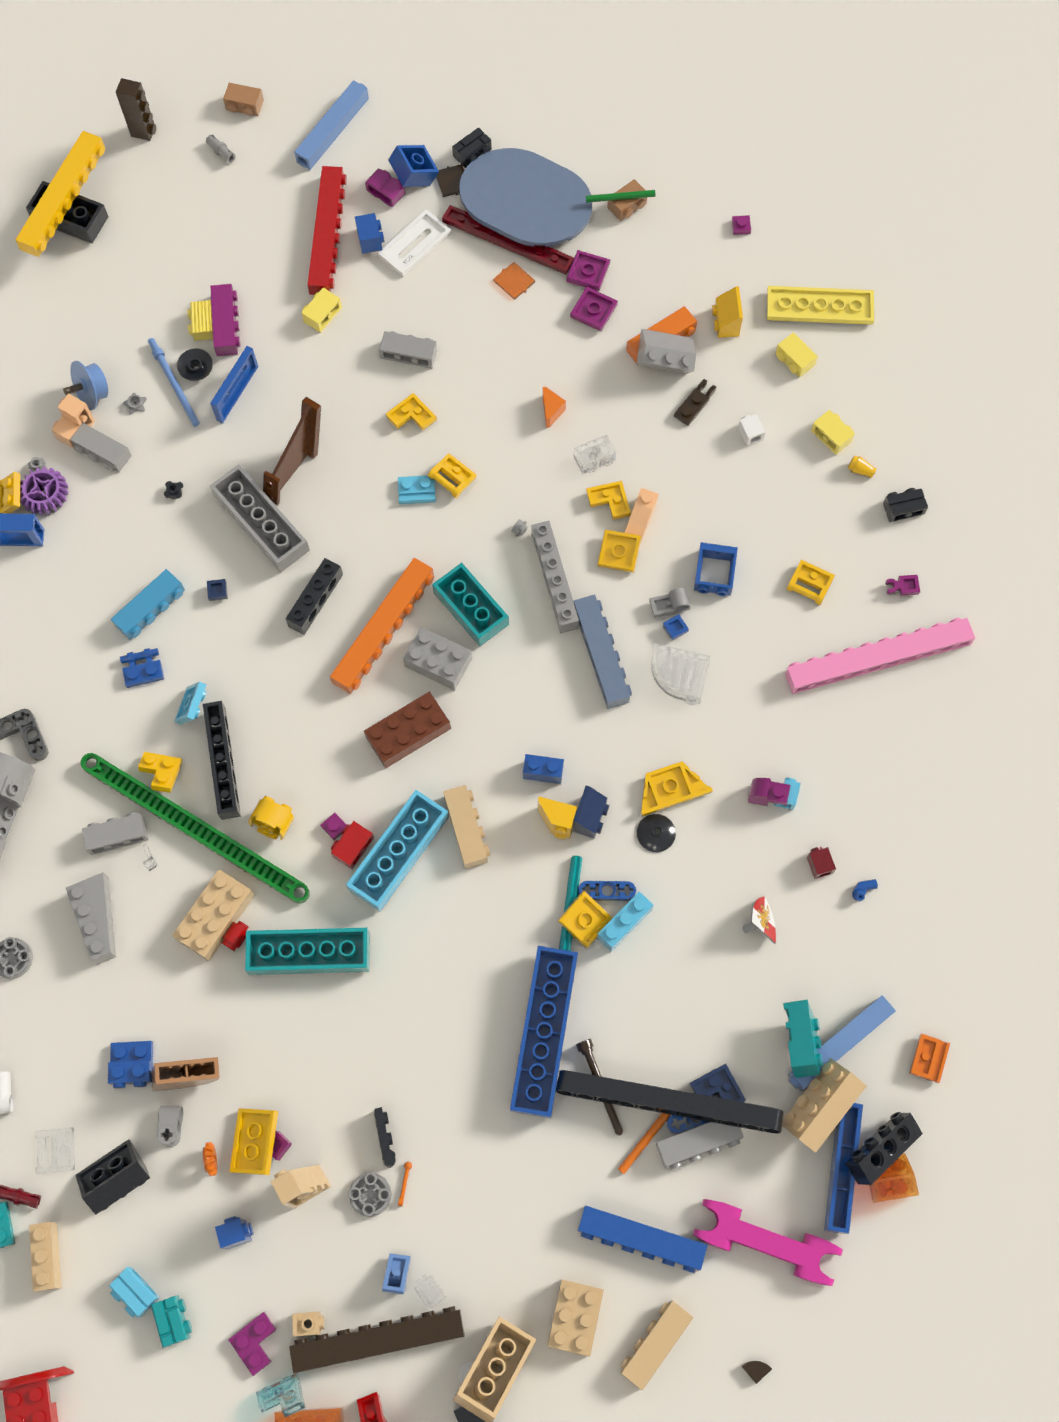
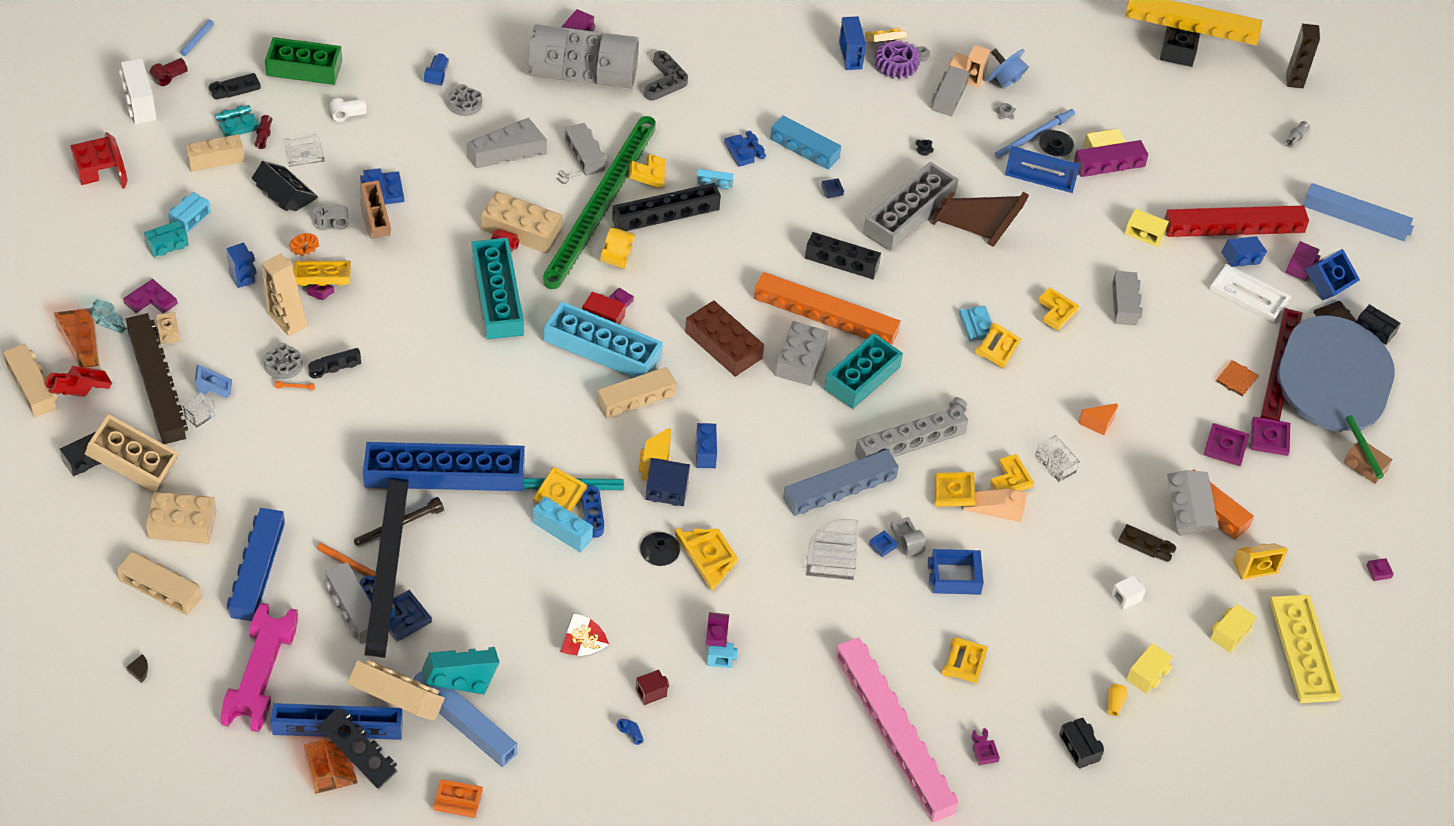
camera: 75 degrees right, 20 degrees down
(243, 99) = (1357, 143): medium nougat brick -> none

